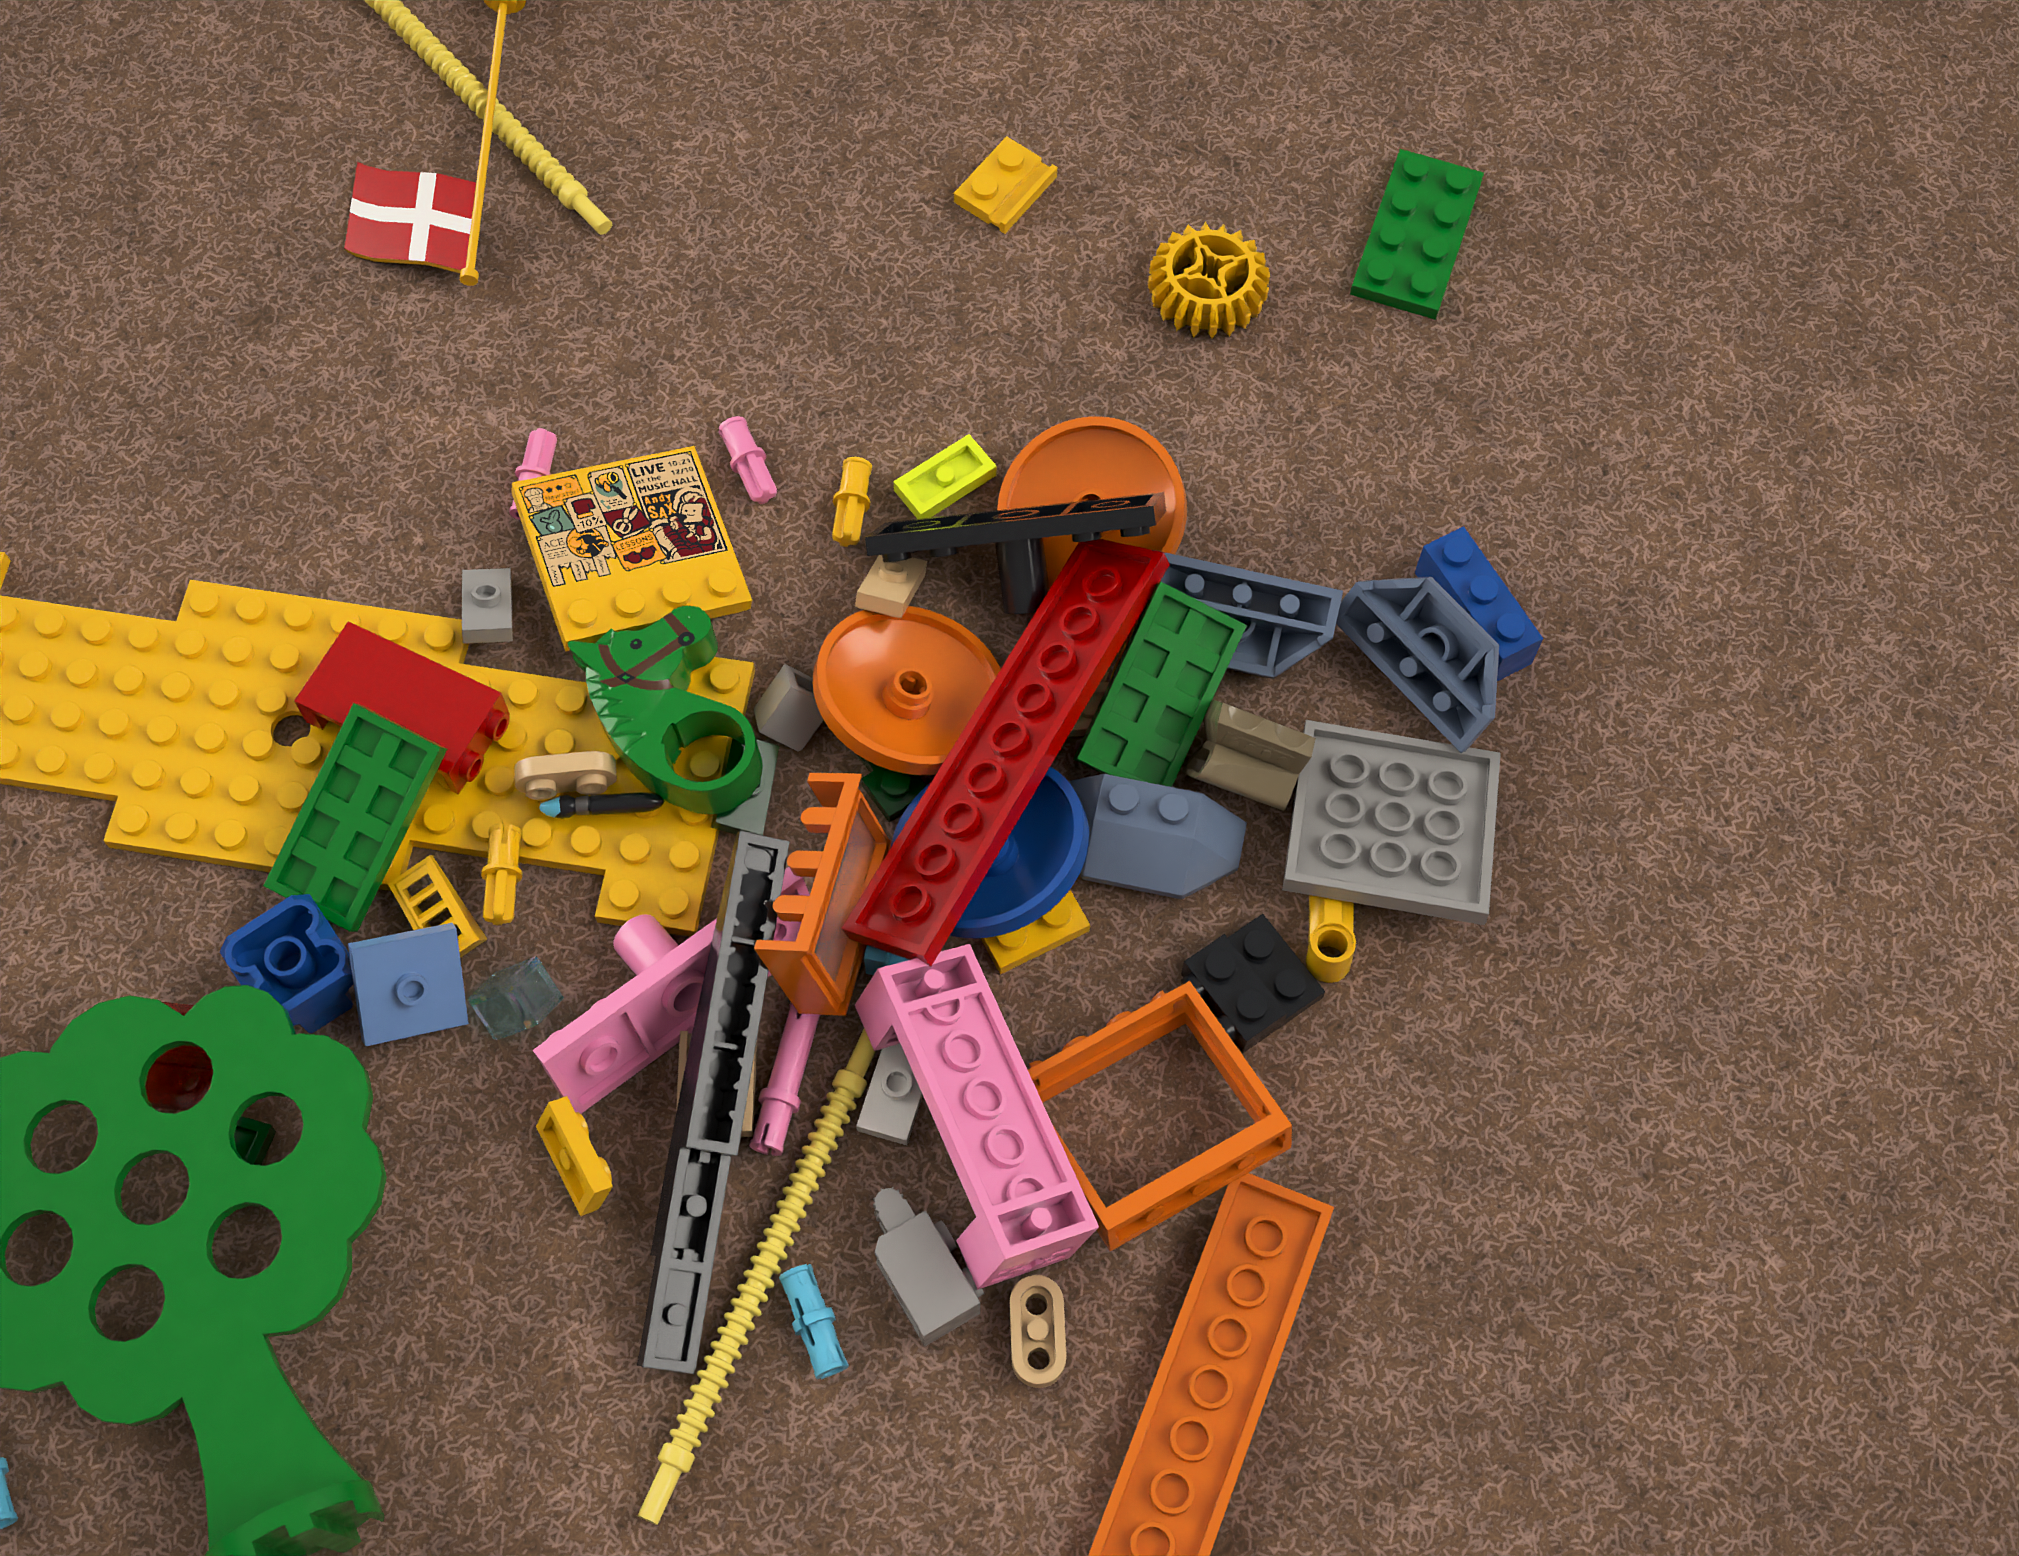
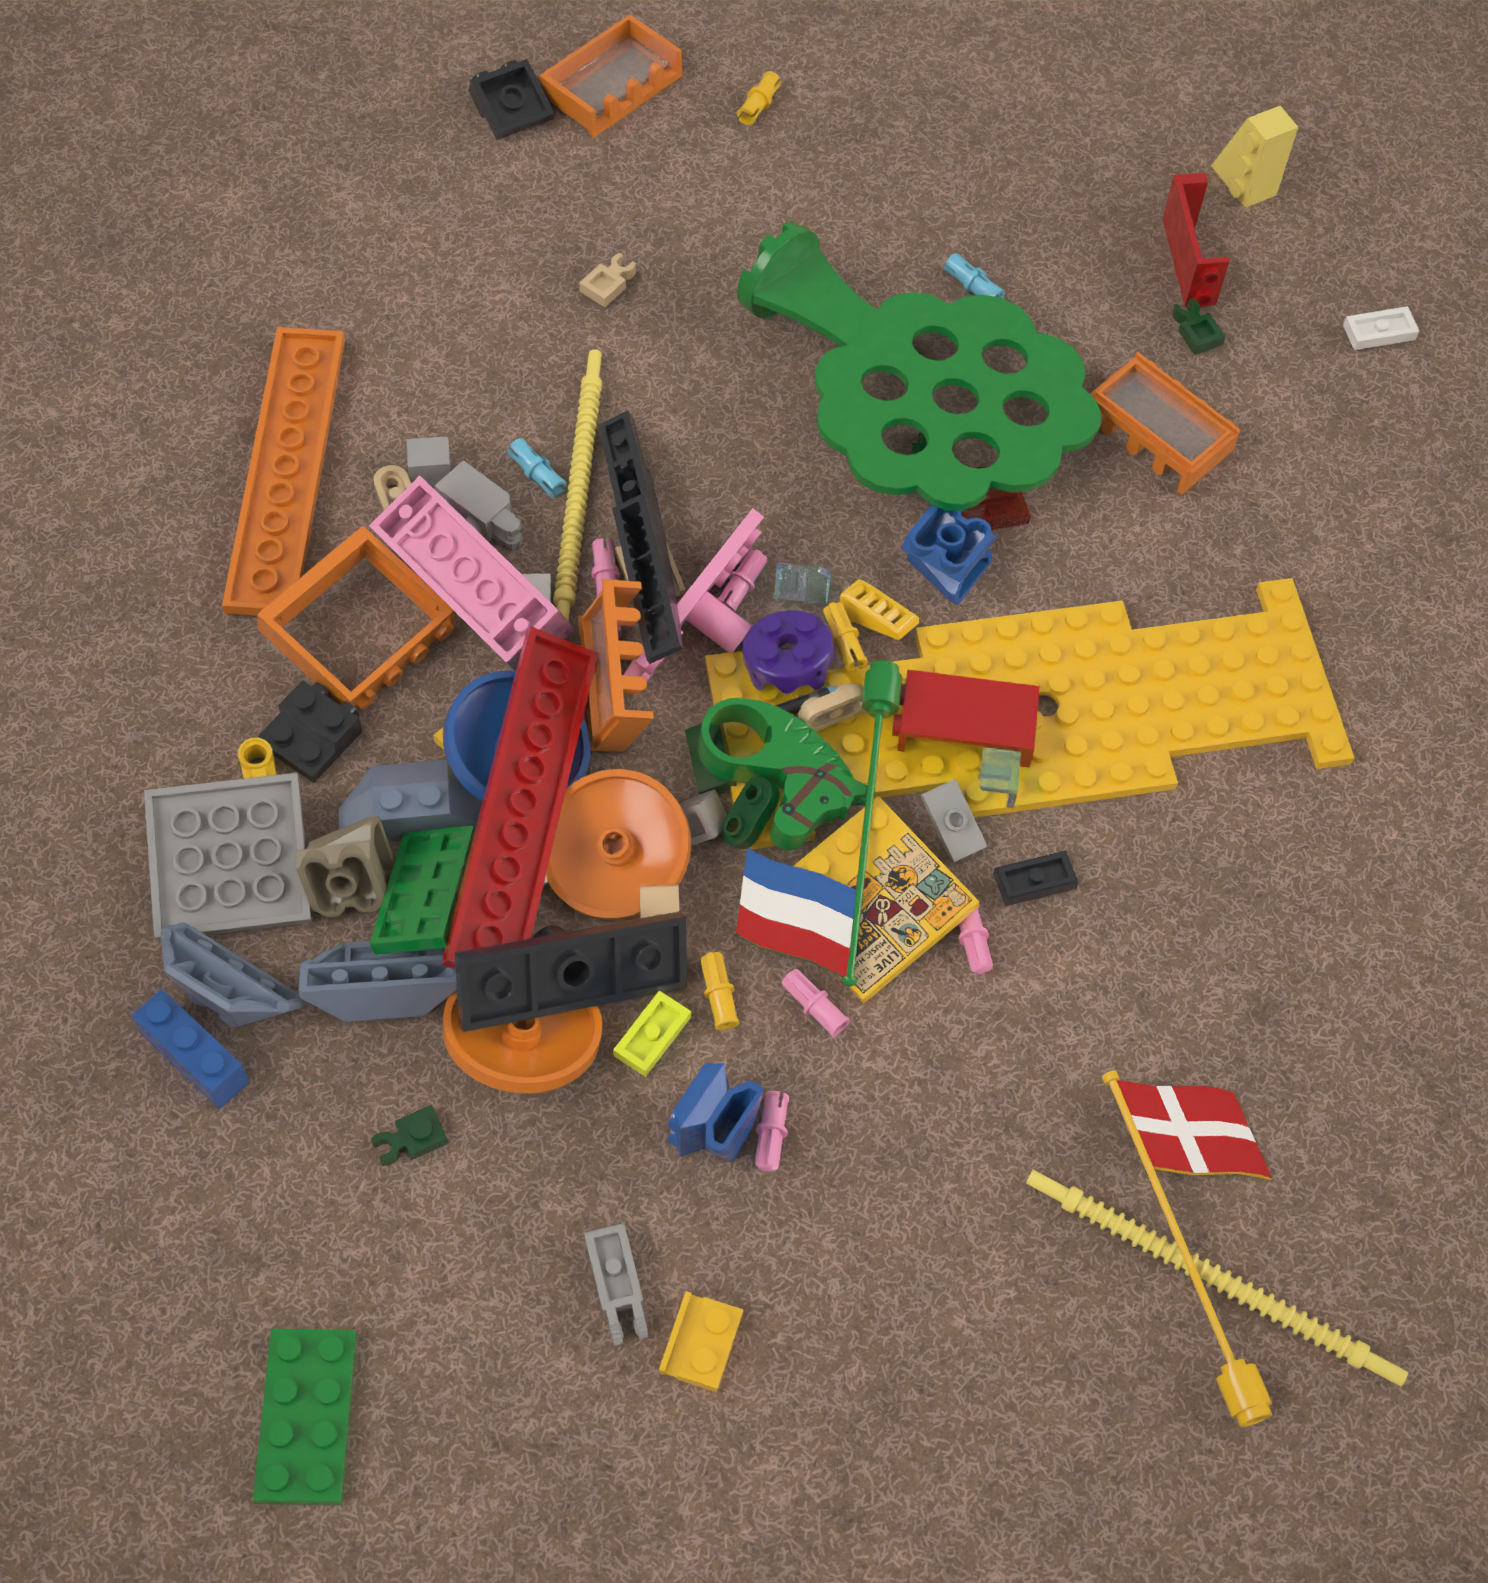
camera: 160 degrees right, 5 degrees down
(356, 816) = (956, 632): green plate -> none
(404, 614) = (1000, 773): none -> clear light blue panel
(408, 984) = (870, 555): medium blue plate -> none
(426, 520) = (1035, 878): none -> black plate
(569, 1146) = (709, 500): yellow plate -> none
(595, 903) = (794, 667): none -> dark purple plate
(713, 545) = (801, 909): none -> flag
(732, 675) = (750, 812): none -> dark green plate
(854, 345) = (771, 1131): none -> bright pink axle
(916, 345) = (714, 1116): none -> blue piece
(973, 1372) = (428, 459): none -> light grey panel
(1071, 258) = (616, 1278): none -> light grey hinge
(1199, 293) = (471, 1300): yellow gear -> none
(1240, 458) = (416, 1134): none -> dark green plate

